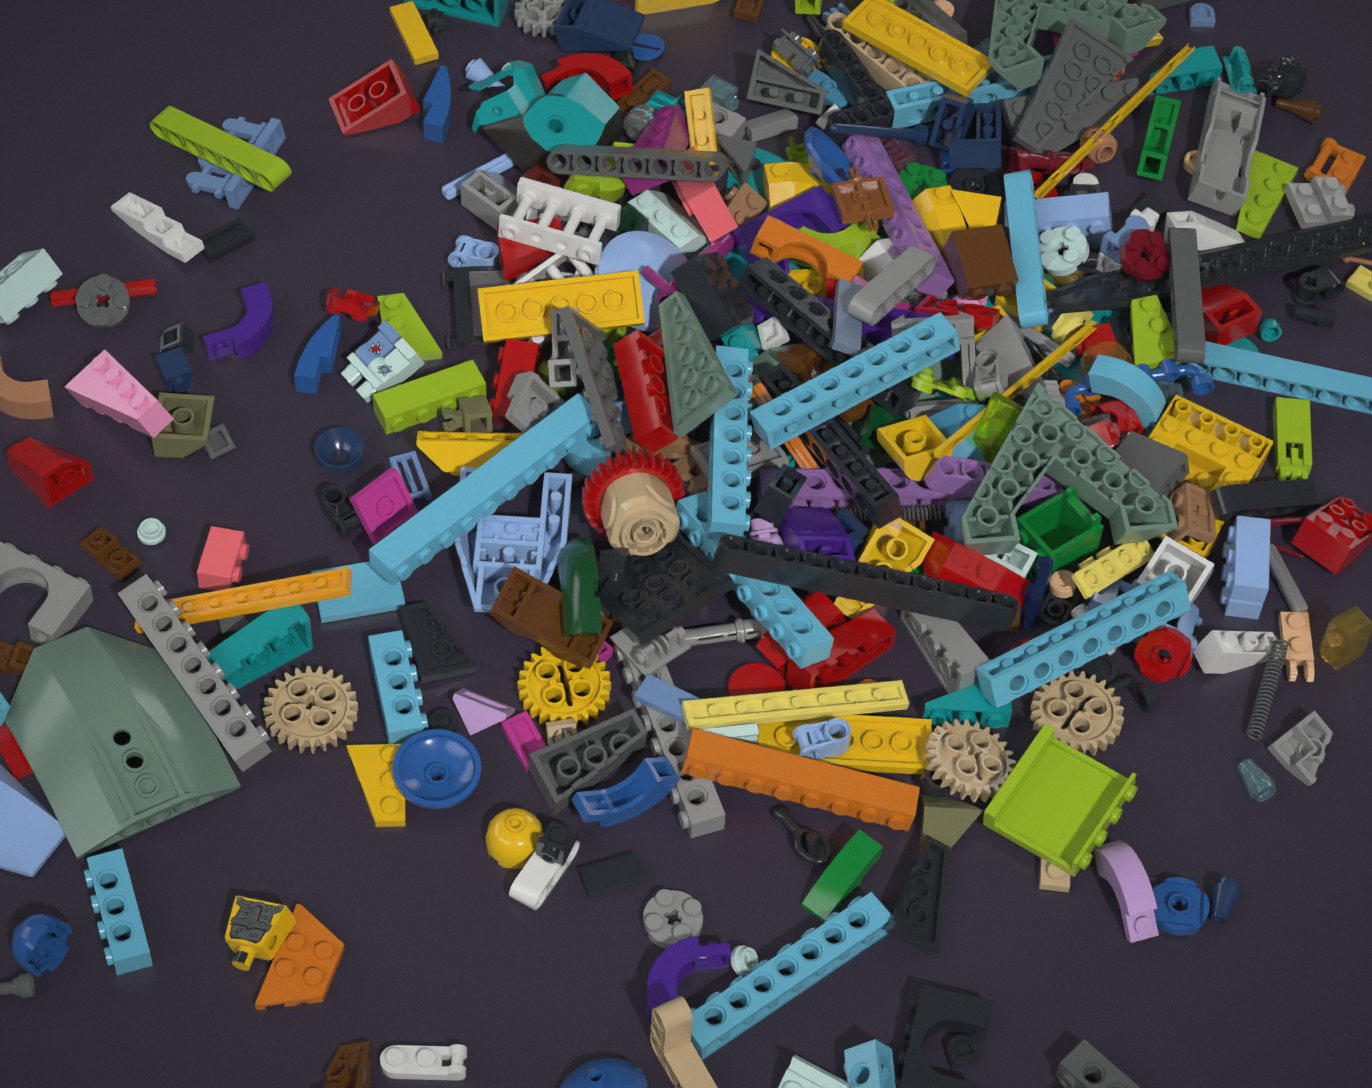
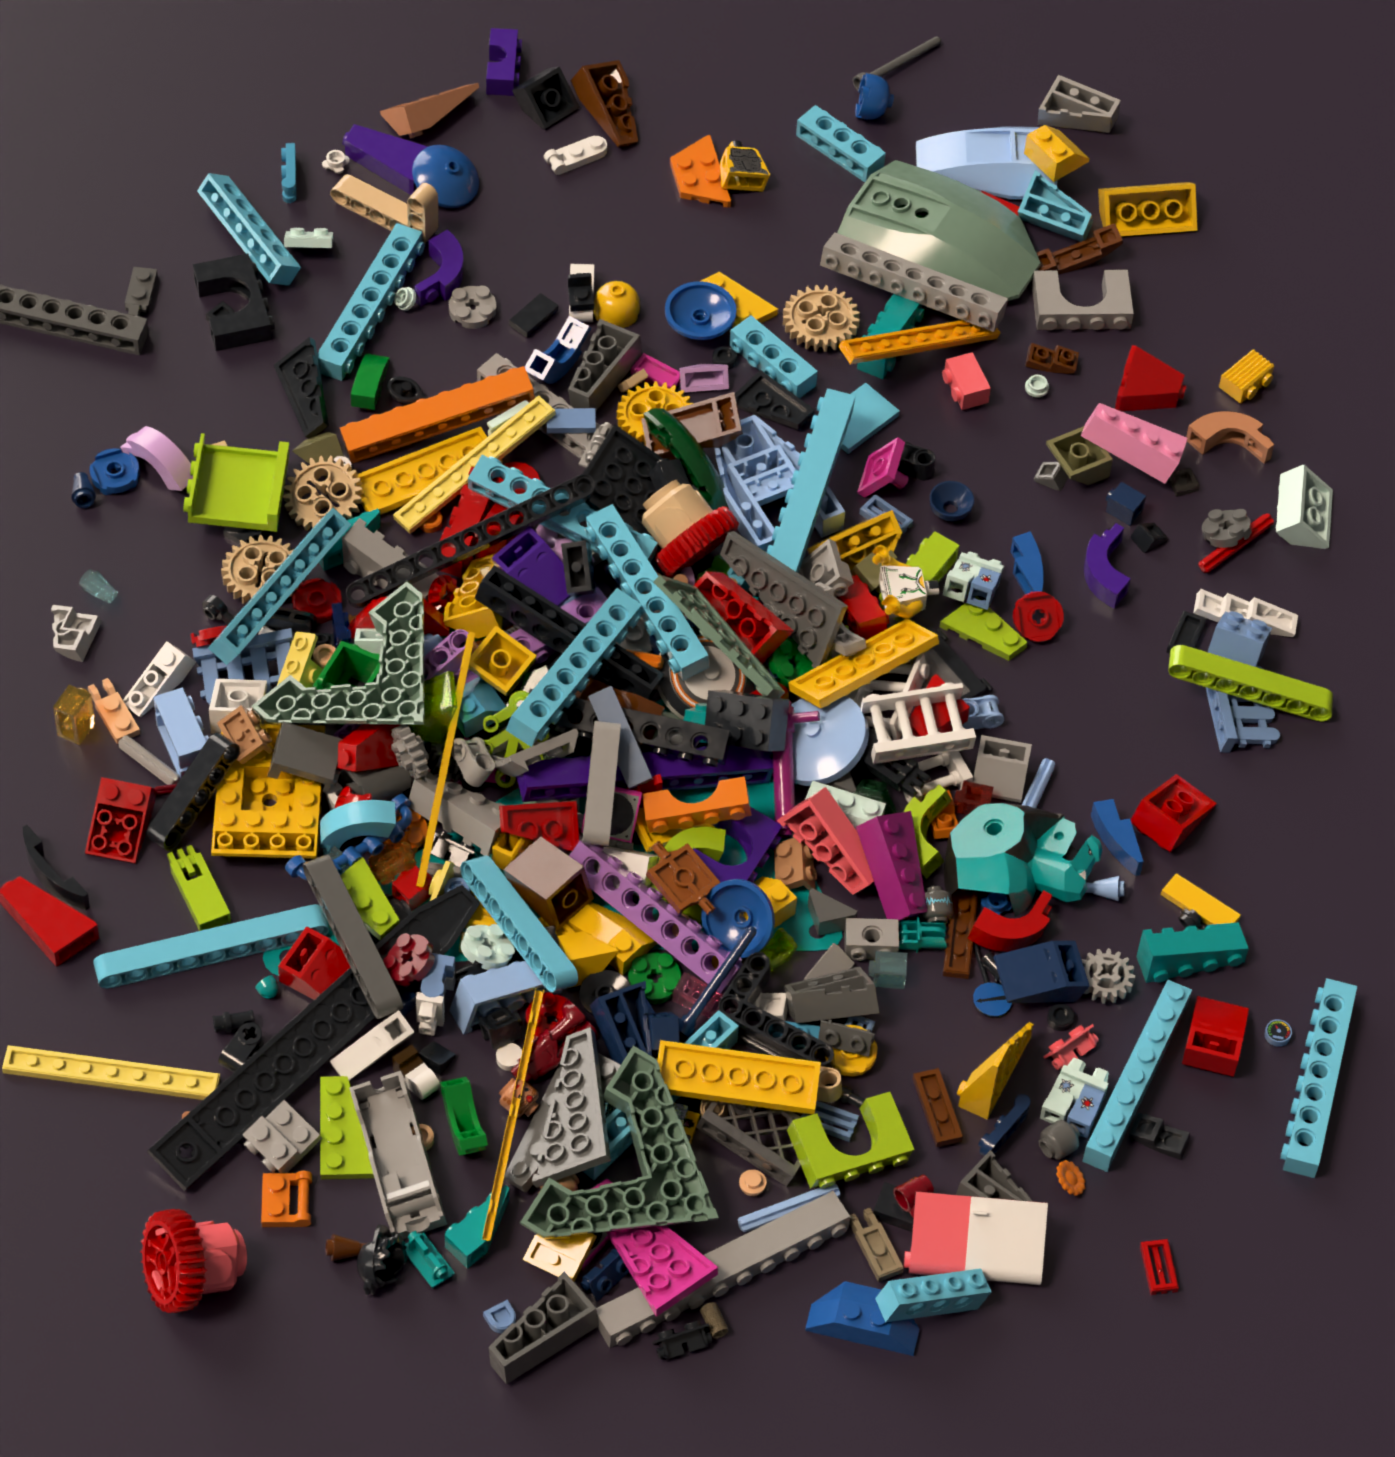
camera: 150 degrees right, 0 degrees up
(192, 190) = (1240, 638): none -> medium blue brick
(232, 625) = (927, 356): dark grey tile -> none
(469, 360) = (902, 586): none -> torso
(648, 158) = (891, 800): dark grey beam -> none
(701, 120) = (878, 913): yellow tile -> none
(820, 739) = (439, 449): light blue piece -> none
(1175, 197) = (416, 1074): none -> leg
(1262, 688) = (120, 632): dark grey piece -> none

